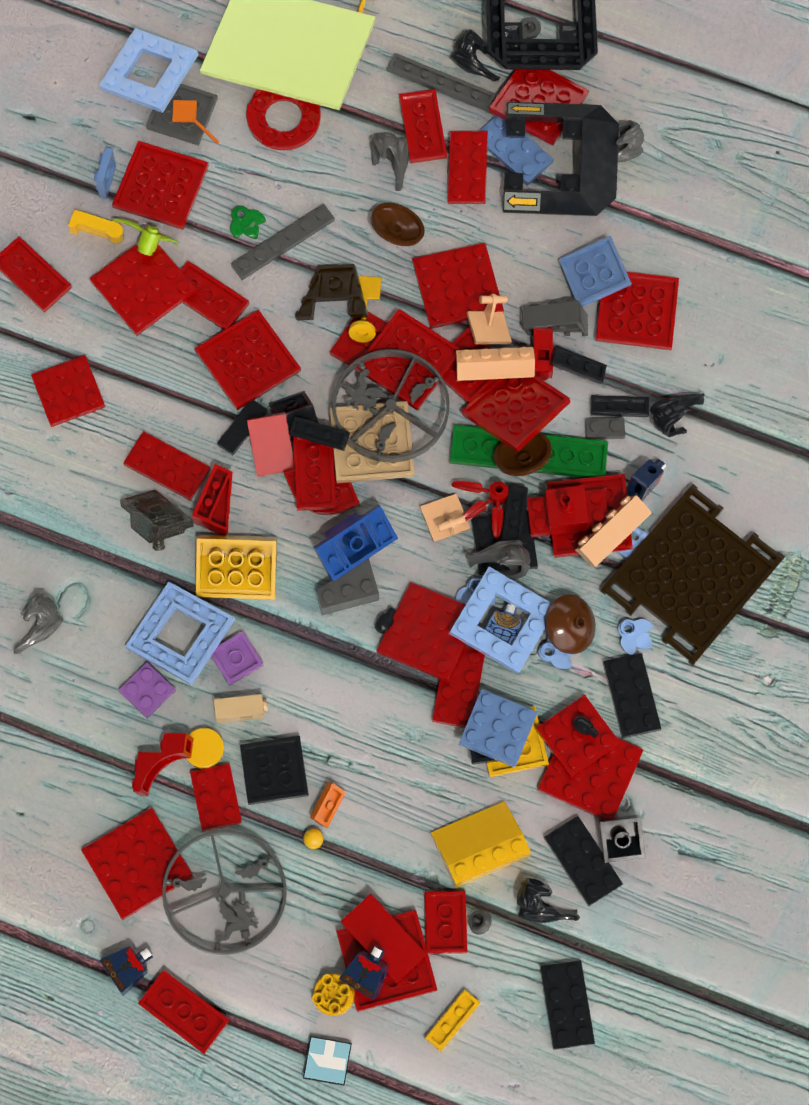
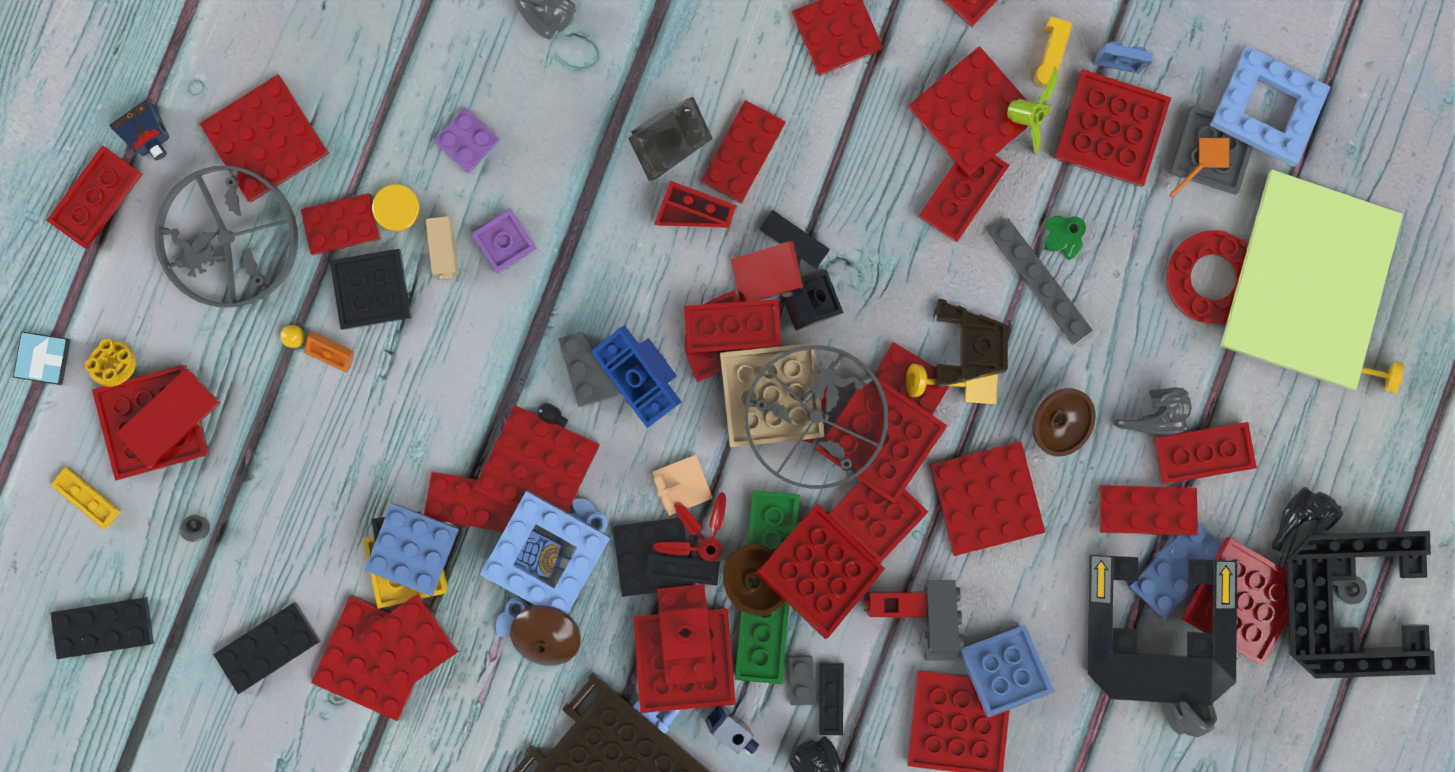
camera: 90 degrees right, 15 degrees up
(149, 764) = (375, 145): red arch -> none
(171, 599) = (520, 133): light blue plate -> none
(236, 566) = (617, 237): yellow slope -> none
(247, 359) = (880, 242): red plate -> none
(319, 433) = (775, 330): black tile -> none
(367, 972) = (124, 398): dark blue torso -> none
(441, 82) = (1267, 476): dark grey plate -> none
(445, 922) = (196, 489): red tile -> none
(481, 844) = (283, 529): yellow slope -> none
(487, 325) = (931, 538): light nougat plate -> none
(495, 363) = (875, 545): light nougat brick -> none
(506, 552) = (632, 561): dark grey hair -> none
(535, 909) = (206, 597): black hair -> none
(578, 364) = (881, 648): black tile -> none
(584, 726) = (412, 652): black cylinder -> none
(613, 531) = (655, 690): light nougat brick -> none
(622, 838) = (287, 694): black slope -> none
(632, 695) = (464, 708): black plate -> none
(637, 637) = (536, 715): light blue plate -> none

